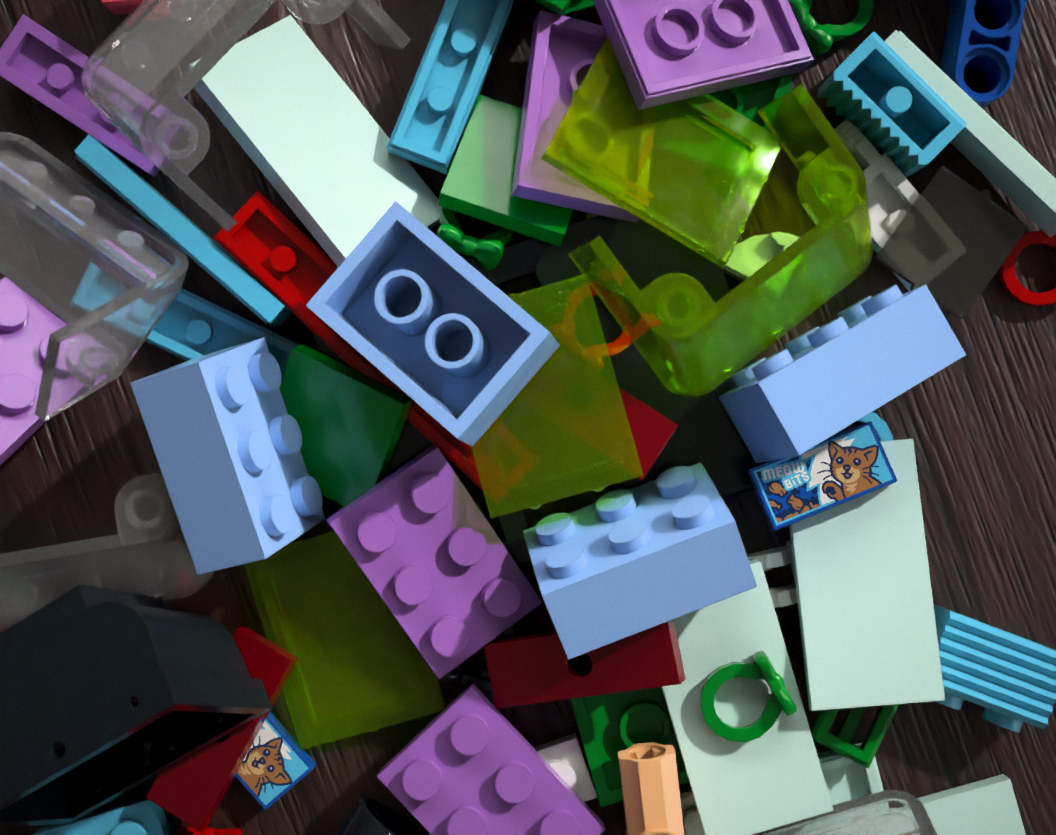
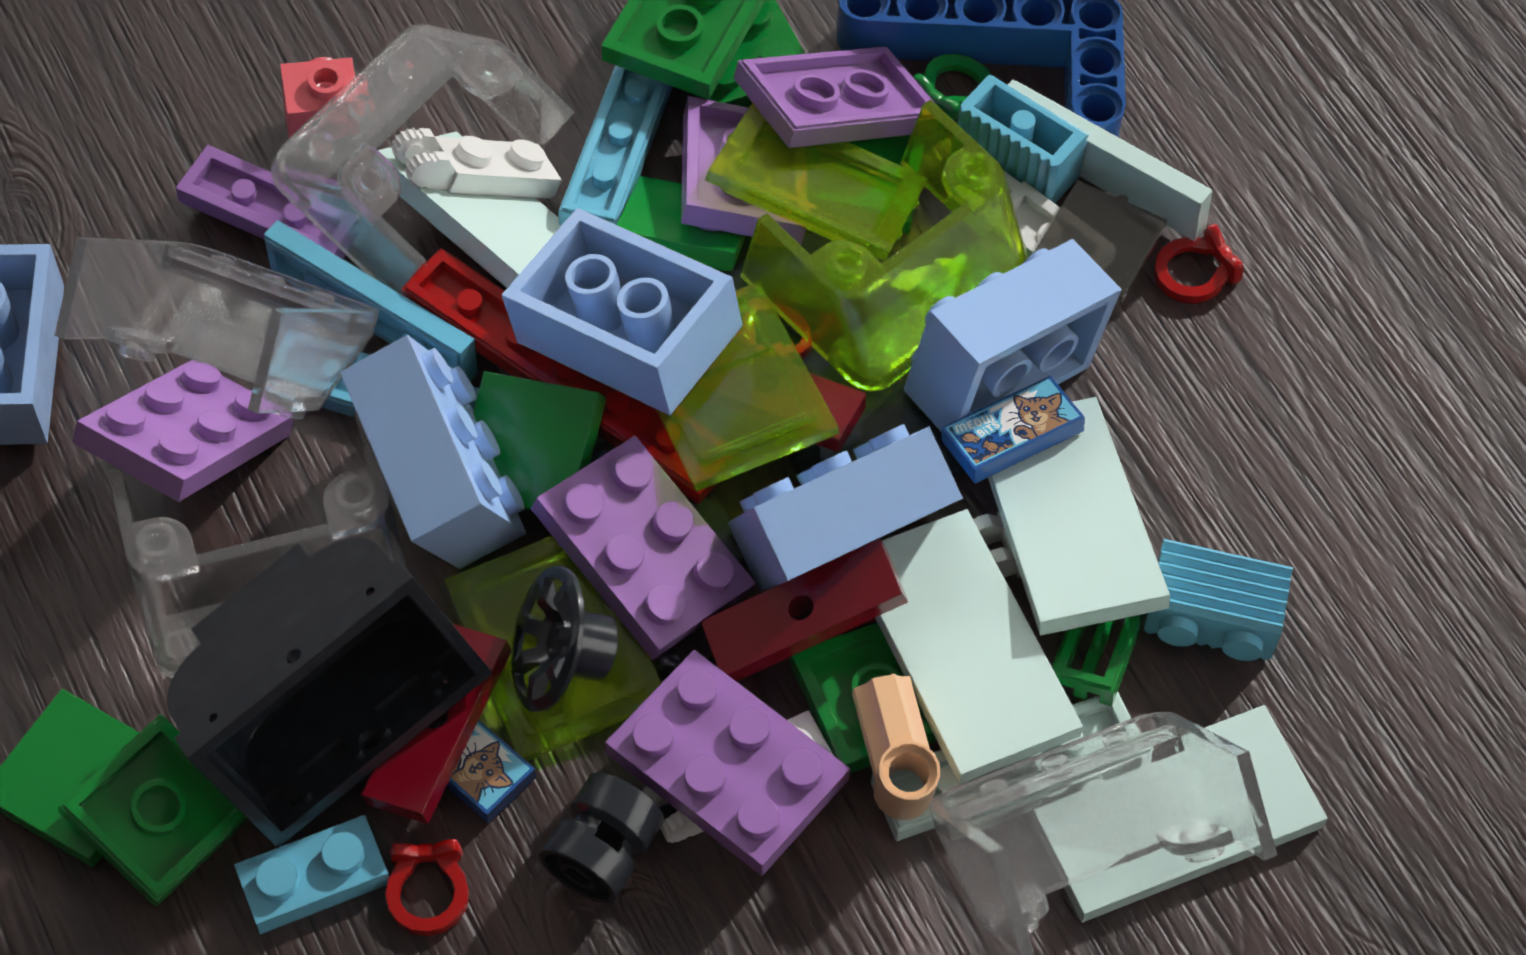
camera: 10 degrees left, 30 degrees down
(304, 82) = (476, 165): none -> white hinge
(349, 681) = (568, 641): none -> black wheel
(777, 702) = (985, 593): green piece -> none

